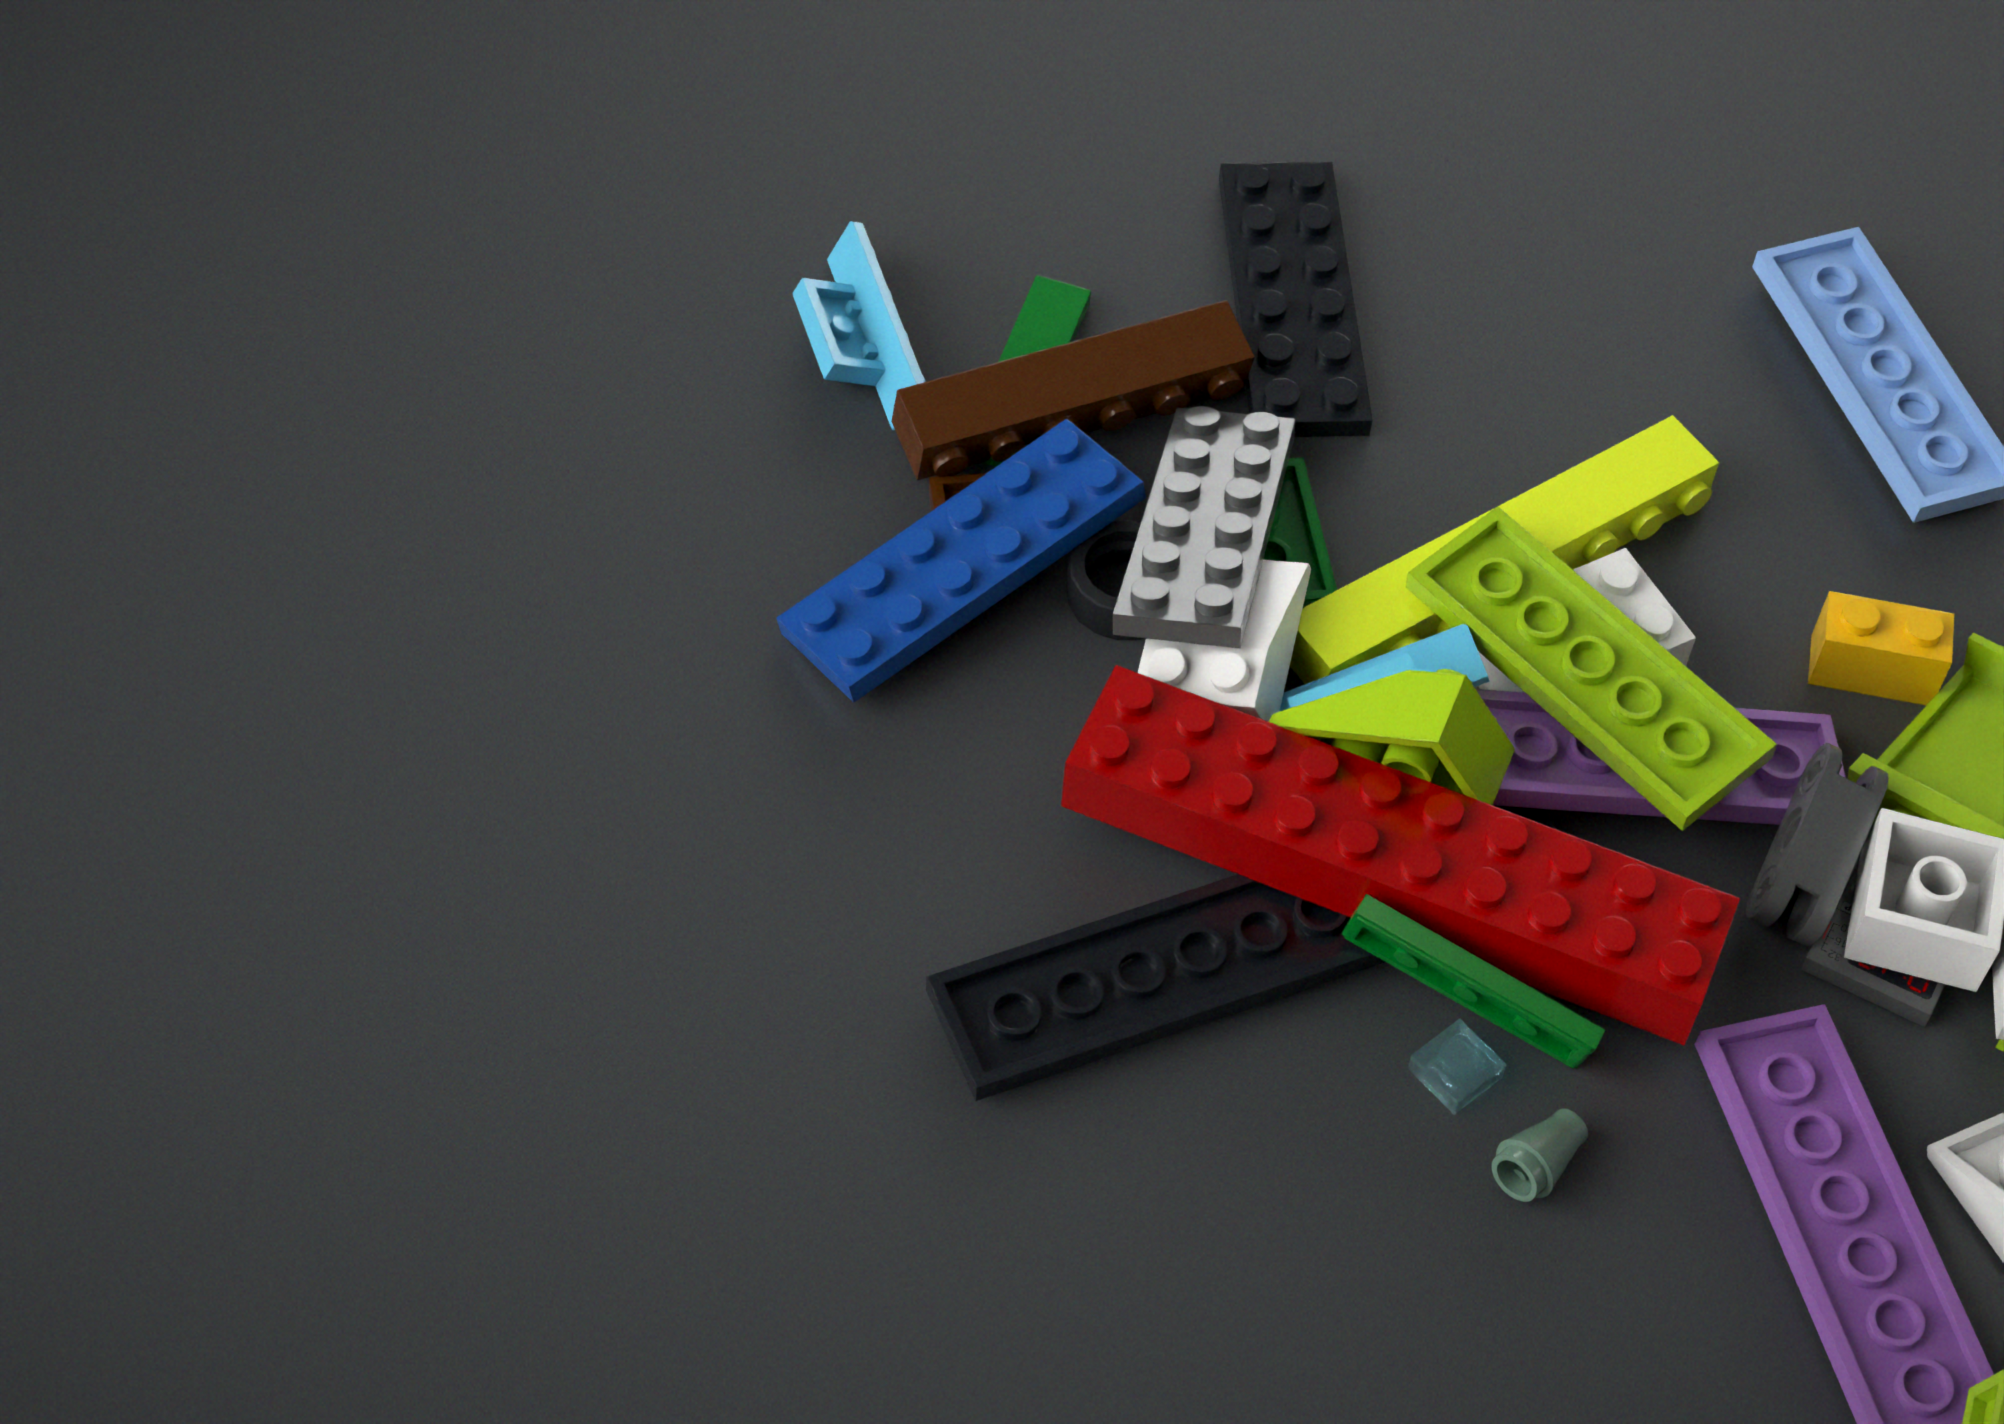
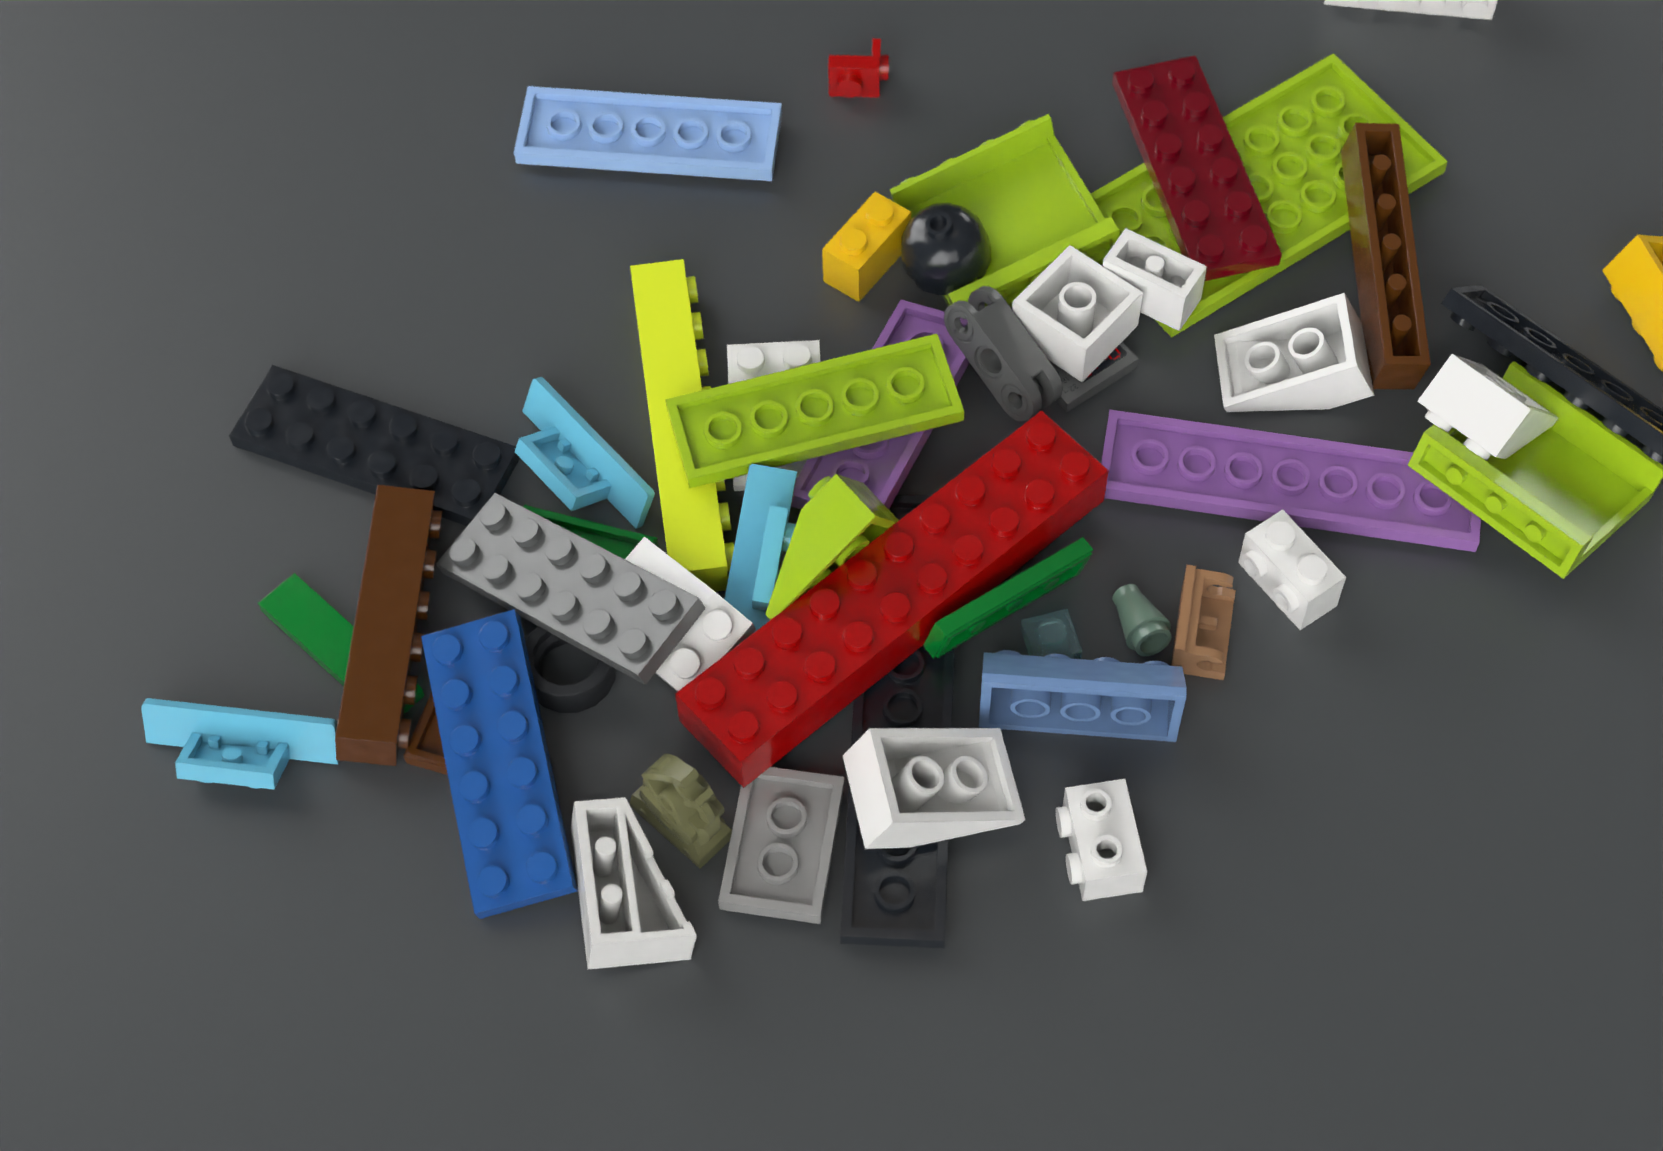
camera: 60 degrees left, 5 degrees up
(866, 732) = (622, 893): none -> white wedge
(1000, 755) = (682, 809): none -> olive piece
(1015, 878) = (782, 845): none -> light grey plate
(1163, 989) = (930, 785): none -> white slope
(1203, 1216) = (1102, 840): none -> white brick
(1384, 475) = (577, 459): none -> medium azure bracket
(1387, 1116) = (1082, 696): none -> medium blue slope
(1580, 1229) = (1204, 623): none -> medium nougat hinge
(1721, 1305) = (1291, 569): none -> white brick
(1934, 726) = (945, 248): none -> black cylinder

